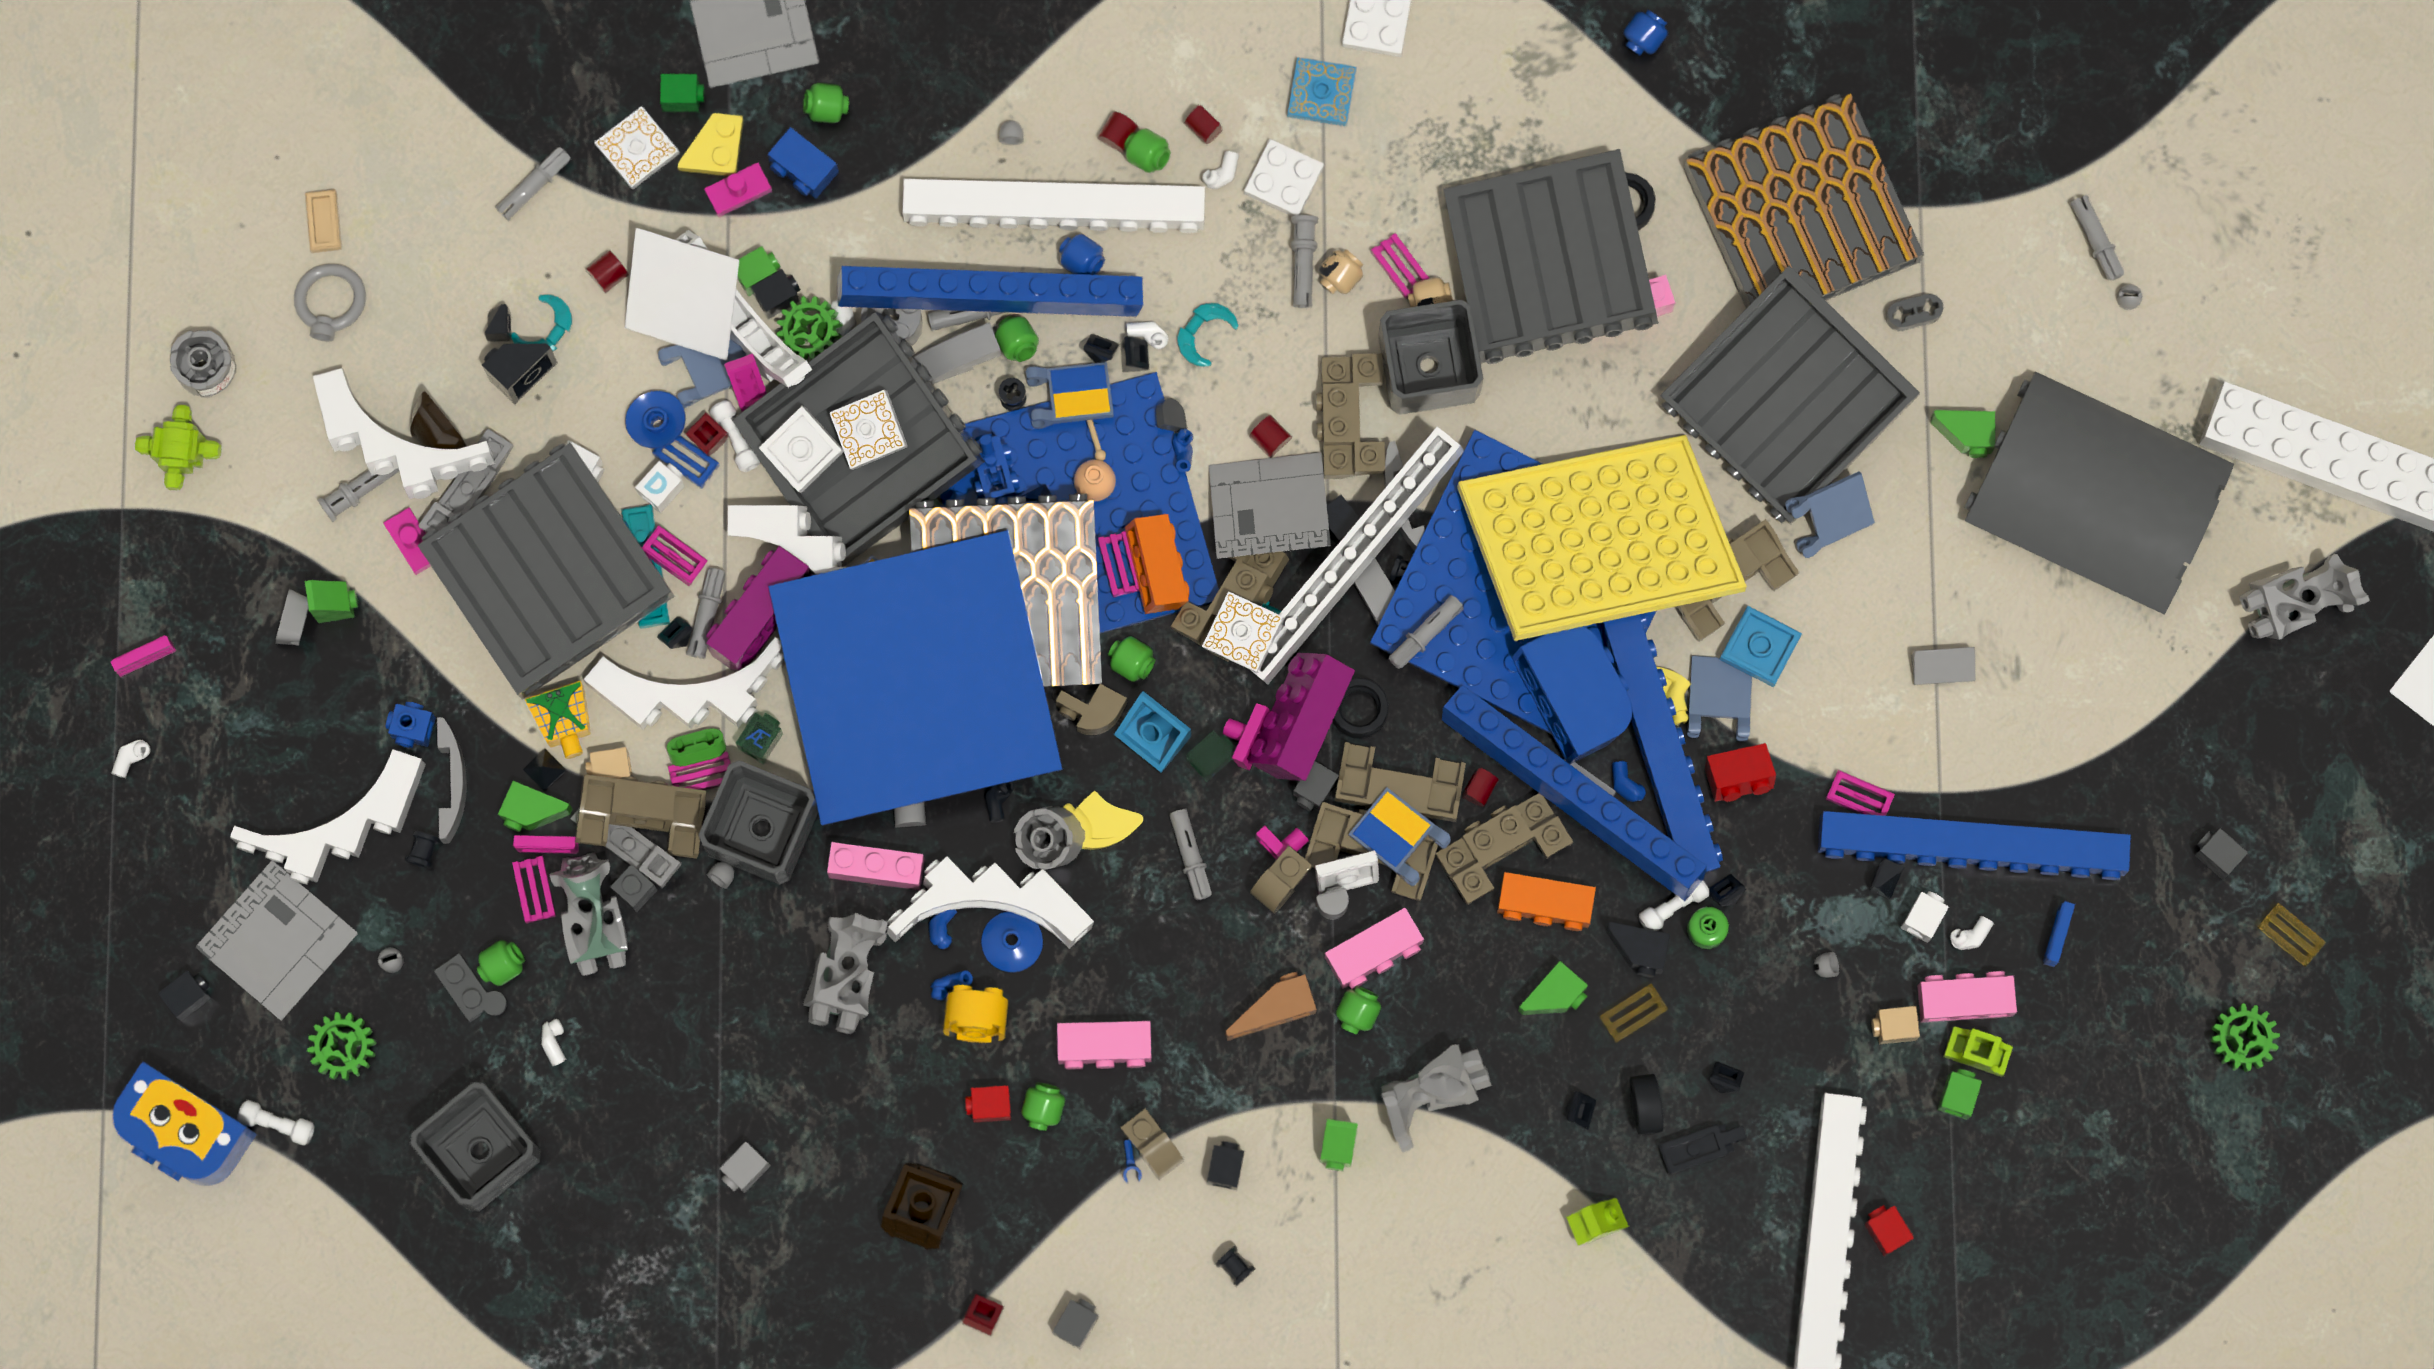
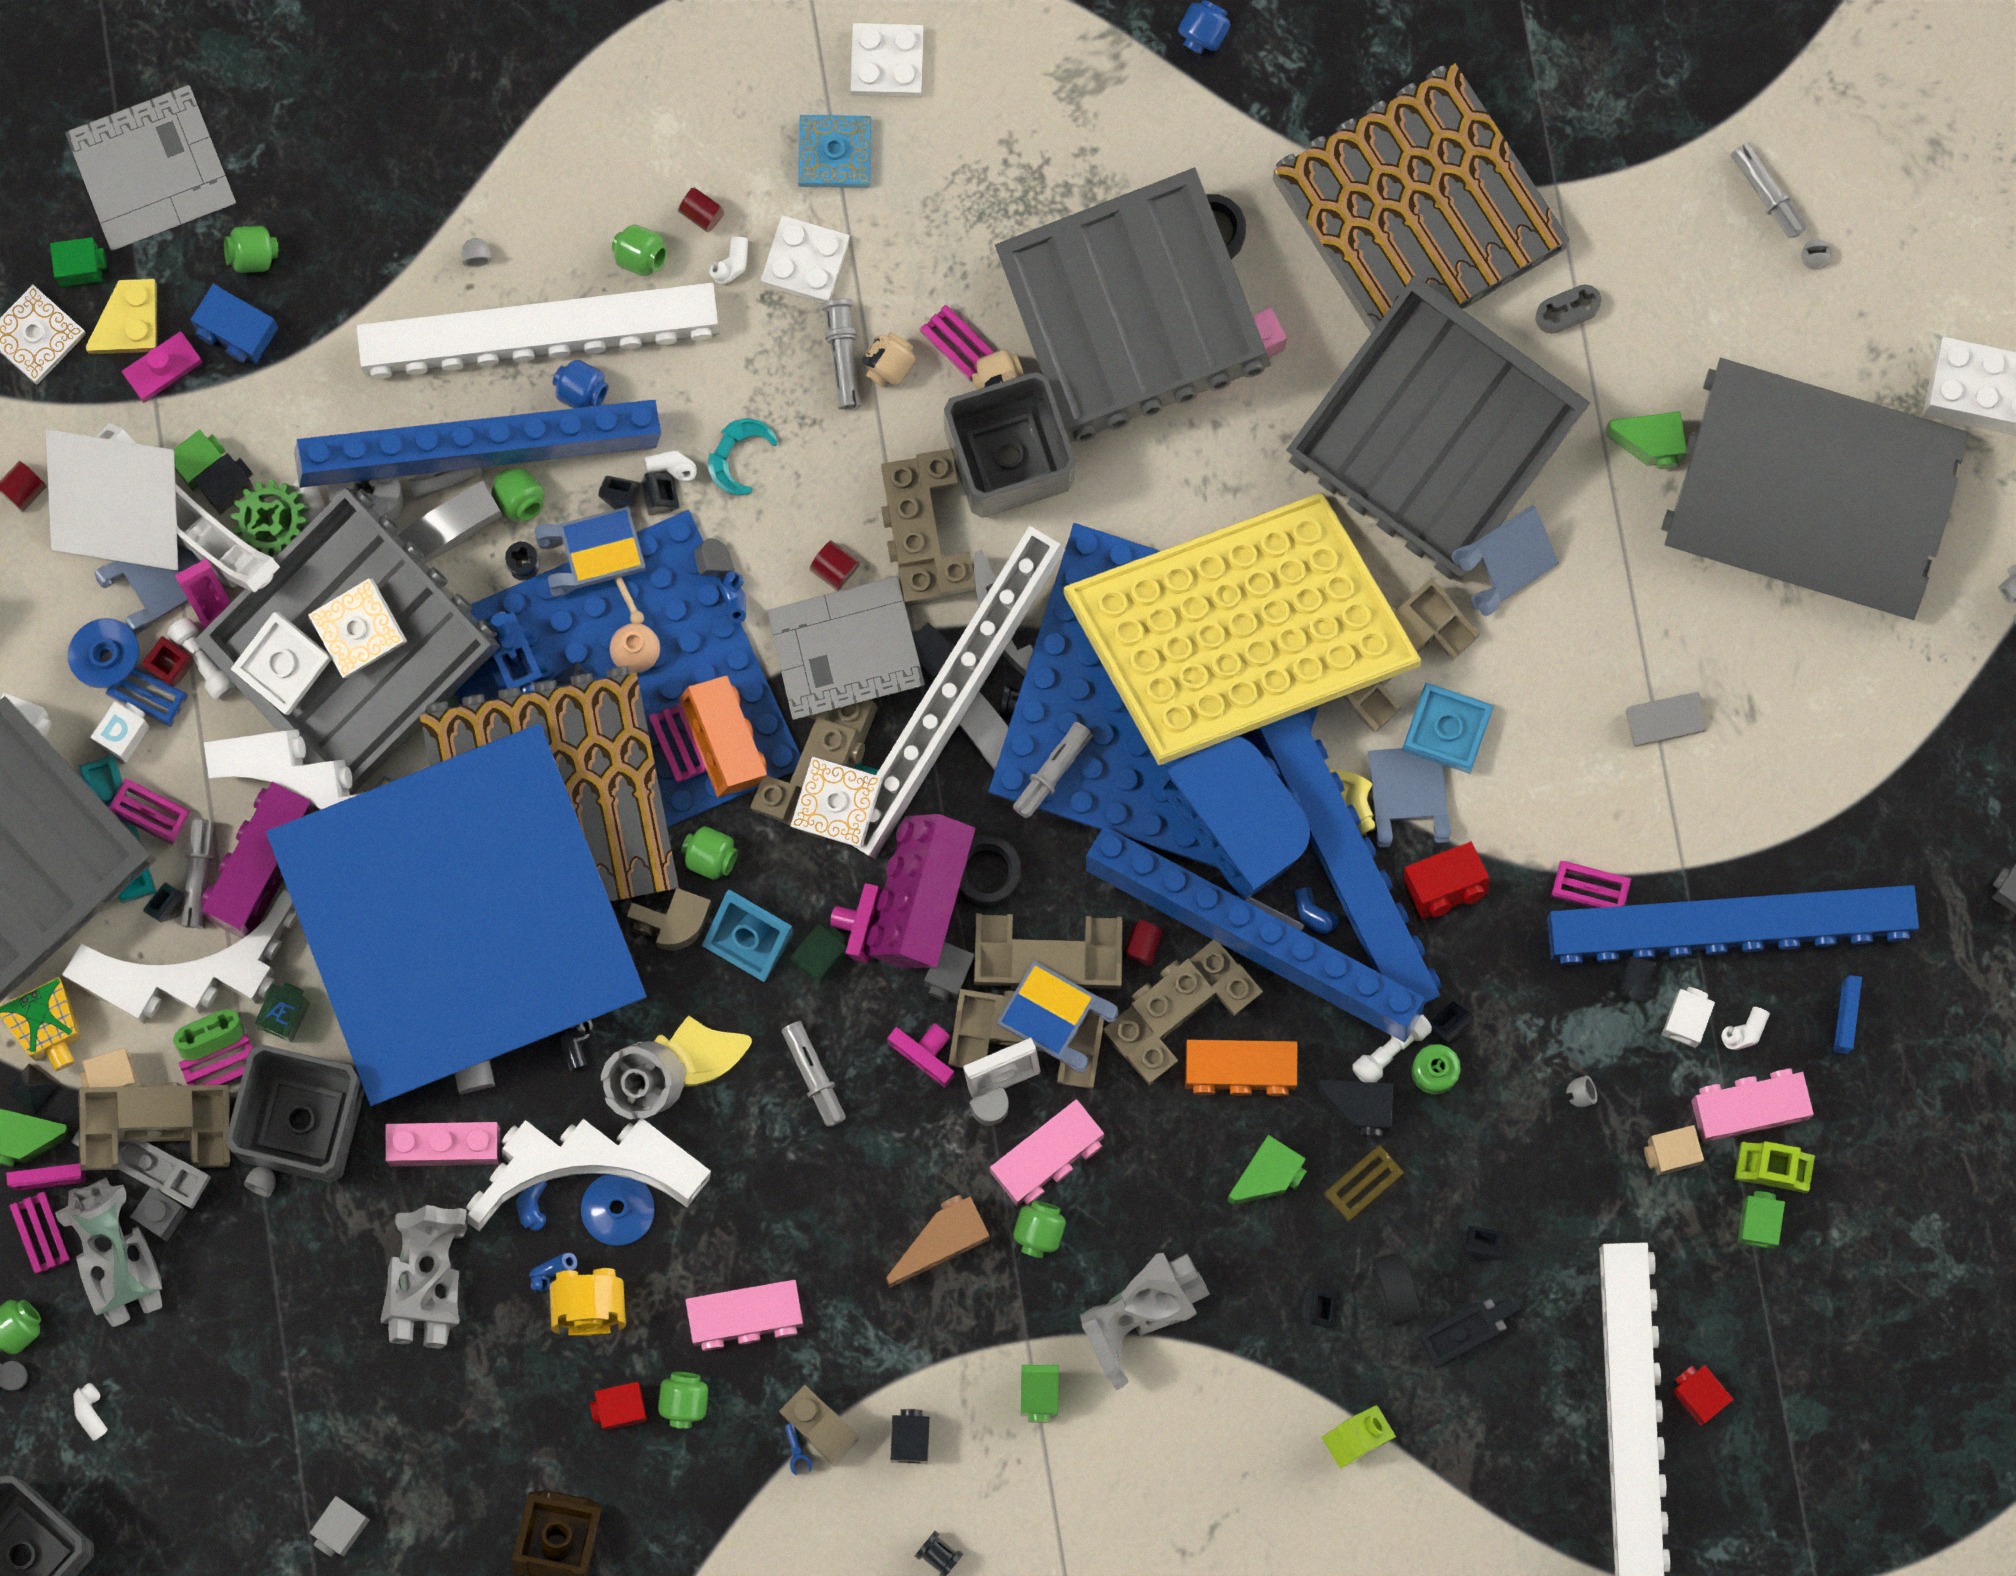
camera: 10 degrees left, 0 degrees up
(1117, 131) = (600, 232): dark red brick -> none
(1280, 879) = (924, 1088): dark tan brick -> none

